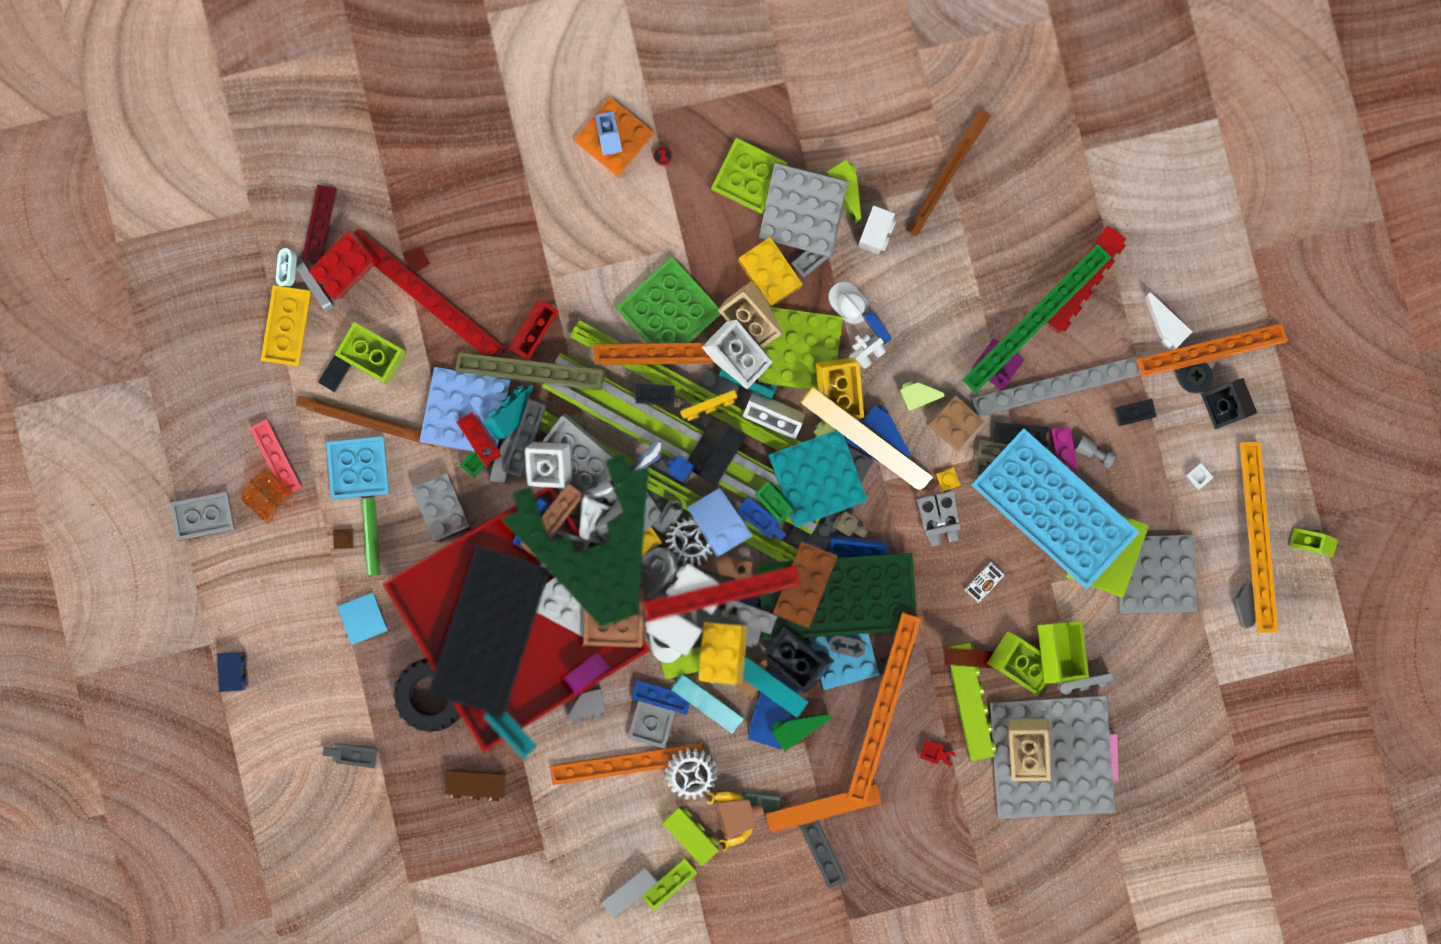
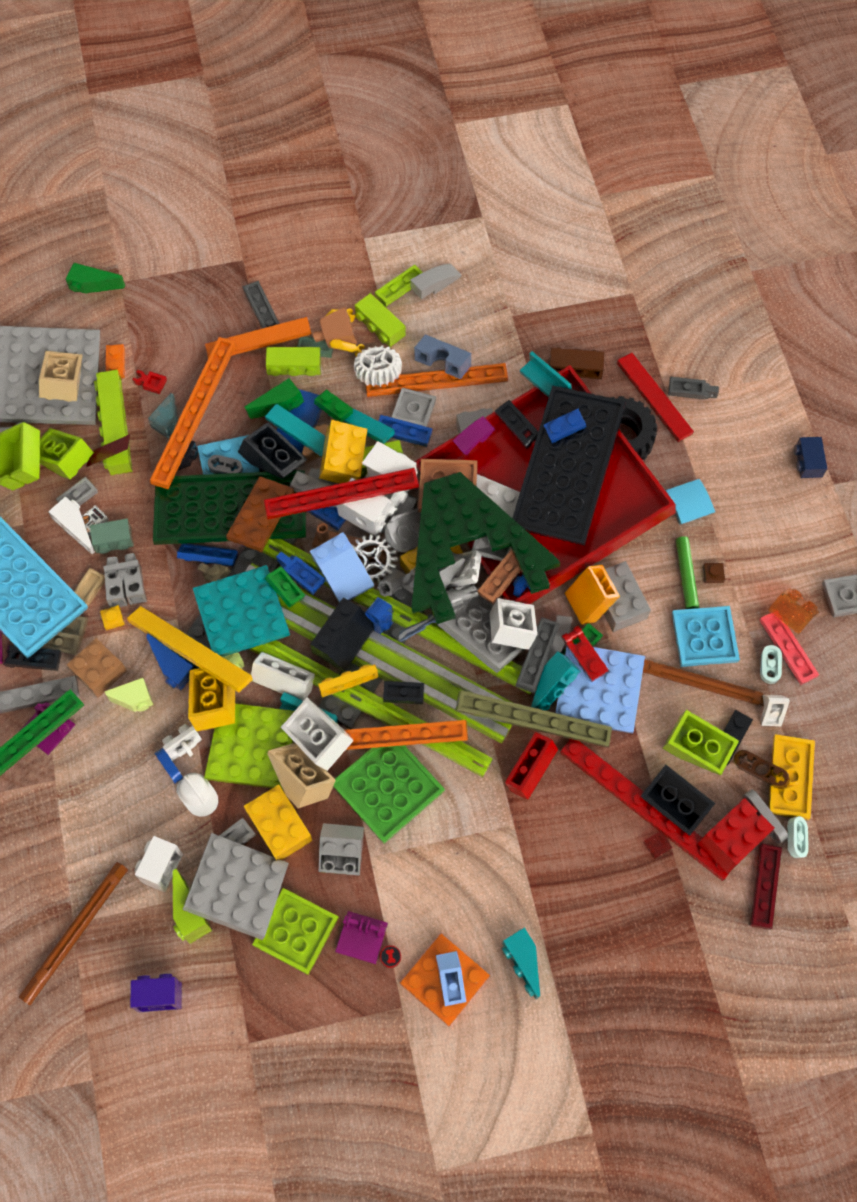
camera: 175 degrees left, 20 degrees down
(293, 439) = (771, 666): none -> light aqua plate
(296, 391) = (774, 710): none -> white slope
(323, 343) = (777, 771): none -> reddish brown beam
(391, 746) = (655, 397): none -> red tile
(395, 299) = (678, 799): none -> black slope
(469, 502) = (592, 594): none -> light orange brick
(492, 669) = (565, 425): none -> blue plate
(541, 682) = (517, 423): none -> black plate
(542, 156) = (524, 956): none -> teal slope
(633, 797) = (431, 349): none -> sand blue arch
(689, 172) = (361, 937): none -> magenta hinge
(710, 250) = (341, 849): none -> light grey slope
(736, 720) = (333, 406): none -> green plate
(783, 780) = (293, 361): none -> lime brick
(867, 116) = (156, 993): none -> dark purple brick
(914, 707) = (165, 417): none -> clear light blue slope
(957, 567) = (111, 536): none -> sand green brick
(975, 512) = (90, 585): none -> tan tile
(977, 780) = (116, 358): none -> orange plate
(998, 579) = (68, 516): none -> white slope
(998, 613) = (79, 492): none -> light grey plate
(1018, 884) = (91, 280): none -> green slope

